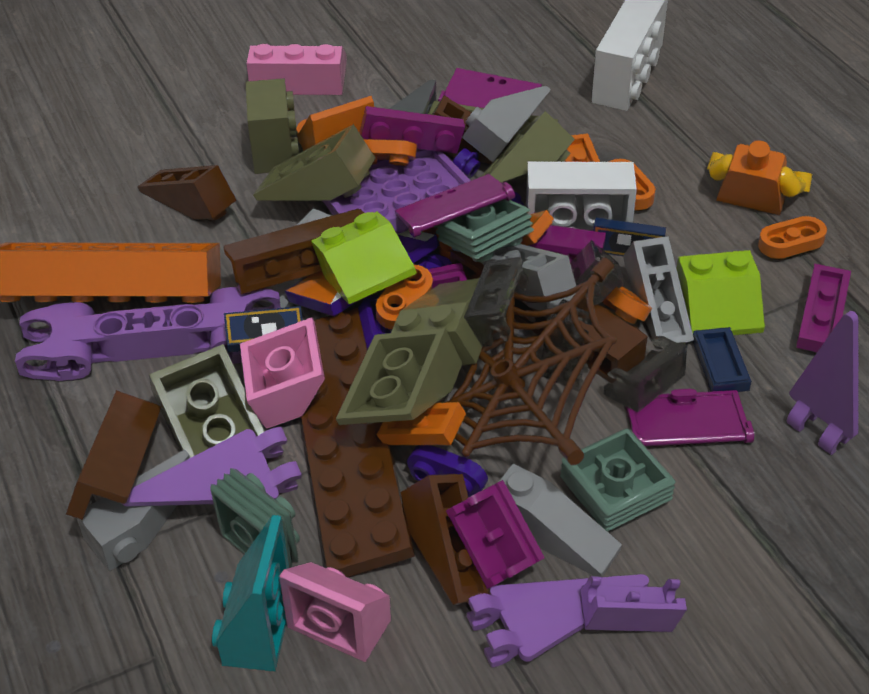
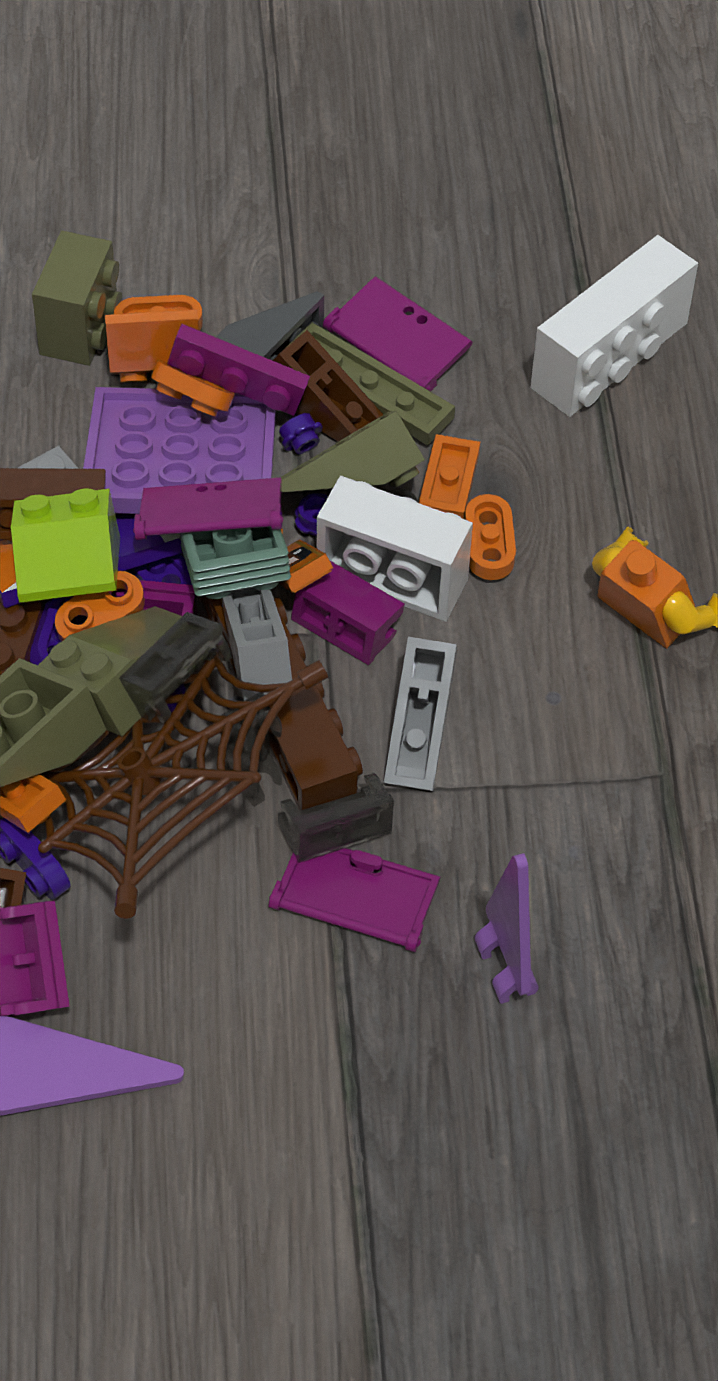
camera: 20 degrees right, 10 degrees up
(305, 68) = (167, 212): bright pink slope -> none
(321, 171) = (95, 393): olive slope -> none
(500, 120) = (364, 391): light grey slope -> none
(560, 524) = (113, 966): light grey slope -> none
(586, 261) = (349, 658): clear smoke hinge -> none
(618, 479) = (202, 968): sand green brick -> none
(622, 234) = (436, 619): tile -> none
(627, 305) = (369, 709): orange plate -> none
(631, 606) = (133, 1098): medium lavender hinge -> none
(721, 360) = (447, 829): dark blue tile -> none
(722, 291) = (496, 741): lime slope -> none
(792, 237) = (648, 690): orange plate -> none
(823, 306) = (617, 808): magenta plate -> none

